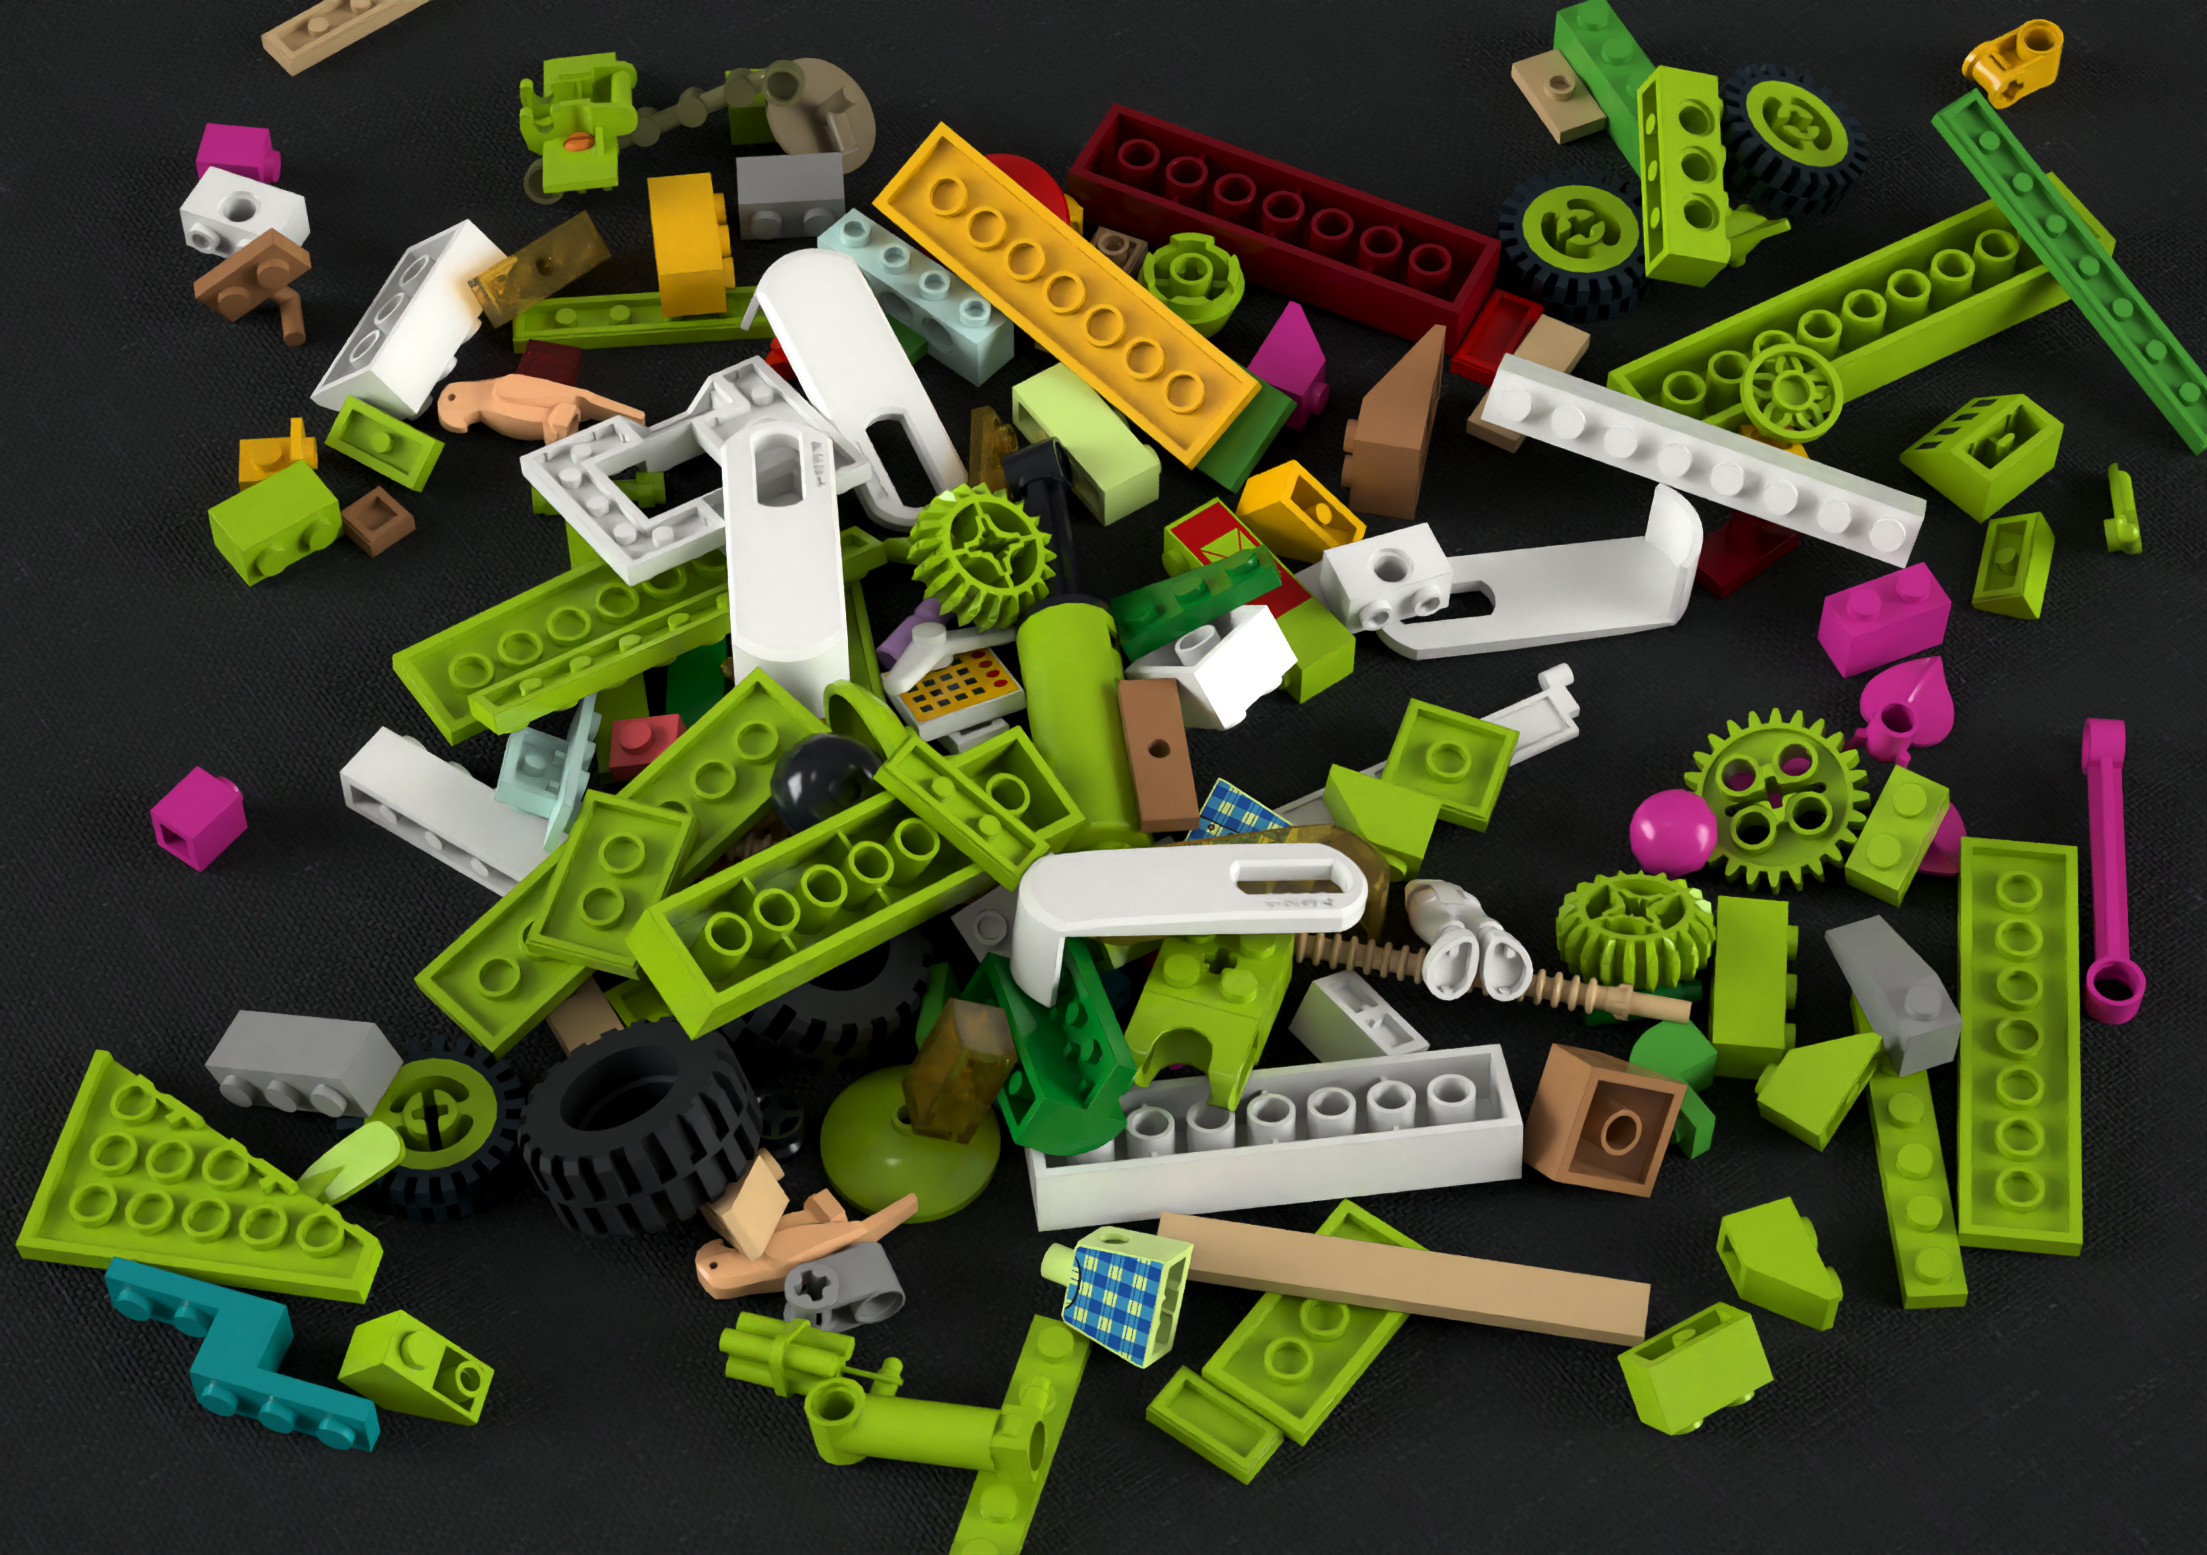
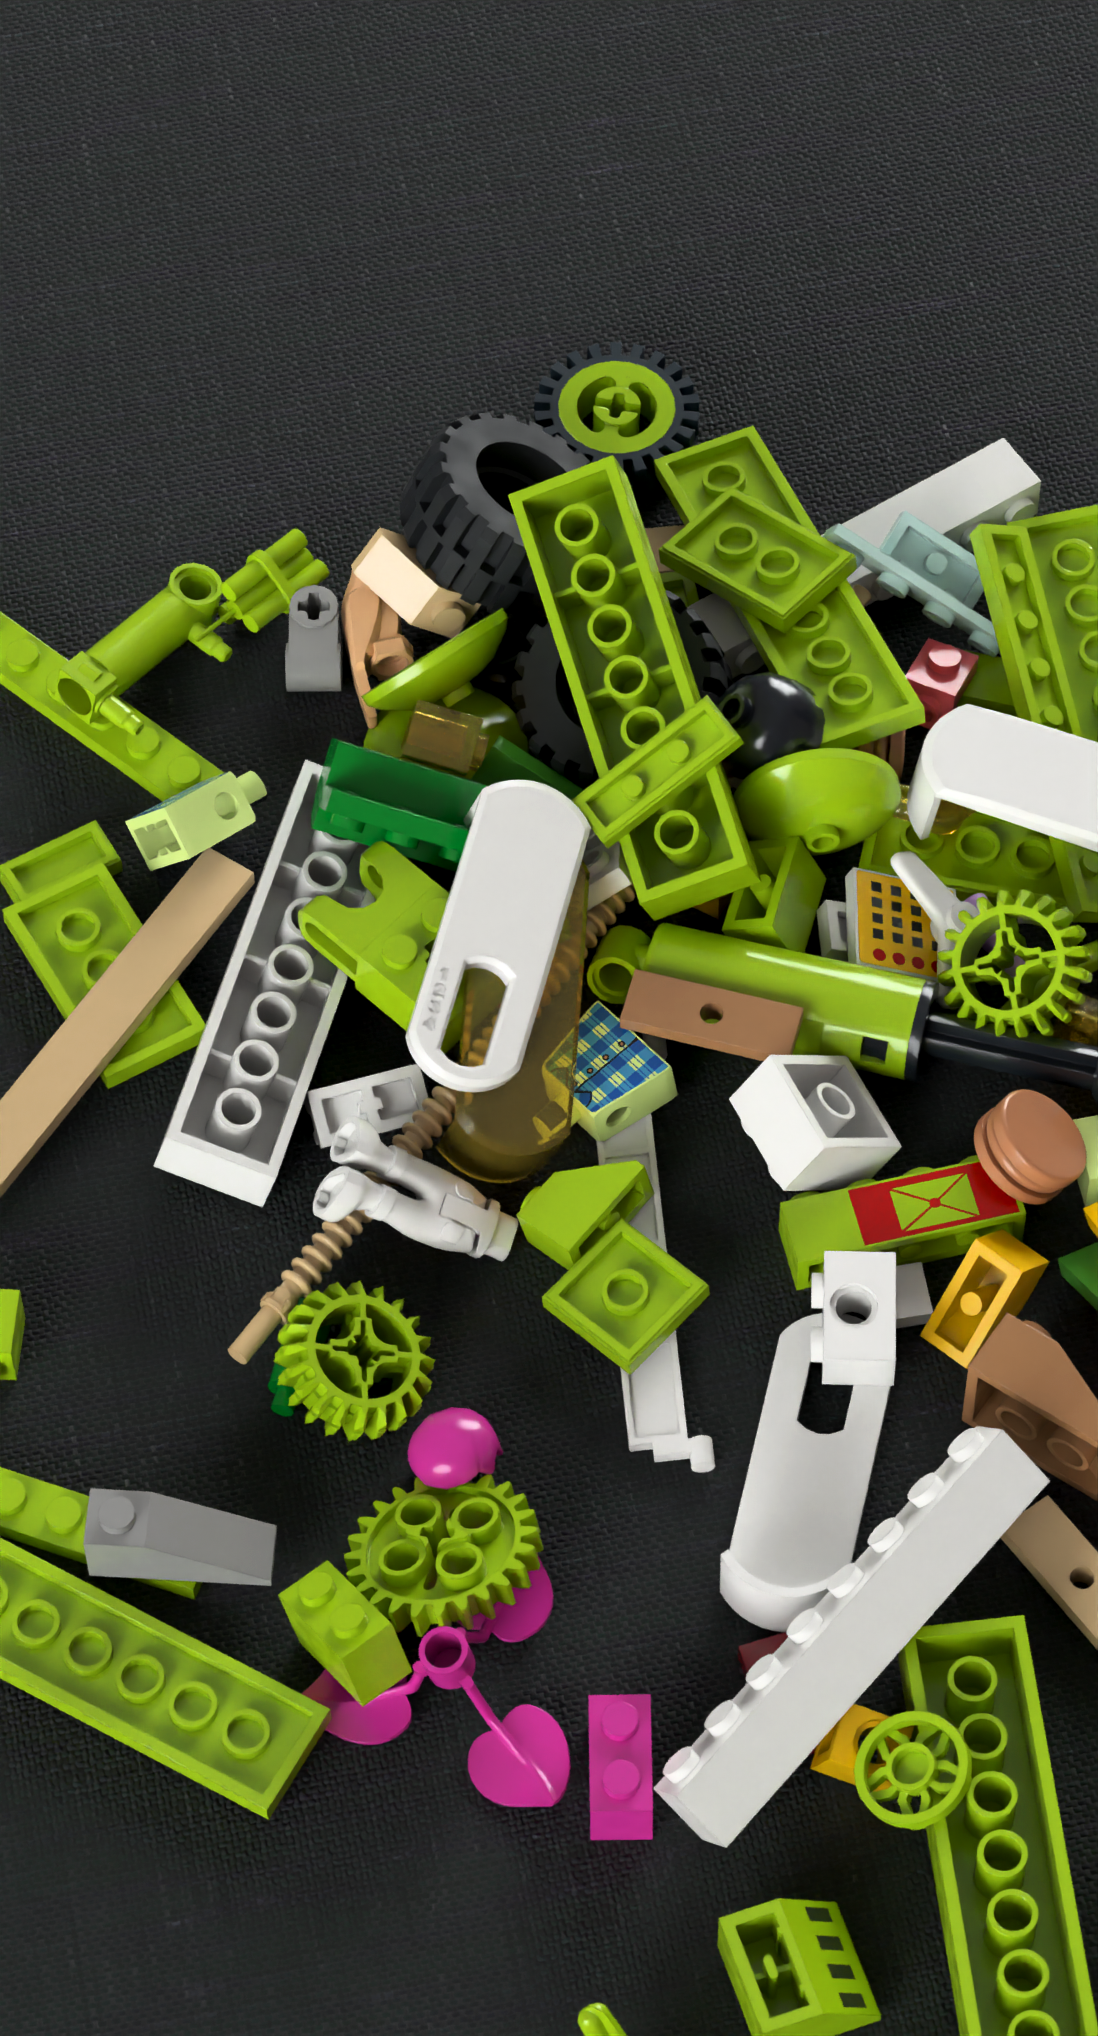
camera: 115 degrees right, 5 degrees up
(170, 1192) = (622, 234): lime wing -> none
(199, 818) = (1015, 348): dark pink brick -> none
(242, 1355) = (465, 246): teal bracket -> none
(304, 1063) = (703, 332): light grey brick -> none
(353, 1163) = (591, 332): lime piece -> none
(415, 1370) = (389, 348): lime slope -> none
(833, 1134) = (443, 671): none -> lime dish
(1157, 502) = (1030, 1147): none -> nougat head
(1191, 599) = (895, 1126): green wing -> none
(1600, 1121) = (163, 1233): medium nougat slope -> none
(1687, 1056) = (199, 1323): bright green brick -> none
(1751, 985) = (258, 1445): lime brick -> none
(1818, 1085) = (116, 1434): lime slope -> none
(2014, 566) = (647, 1953): lime slope -> none
(2103, 763) = (360, 1895): dark pink piece -> none

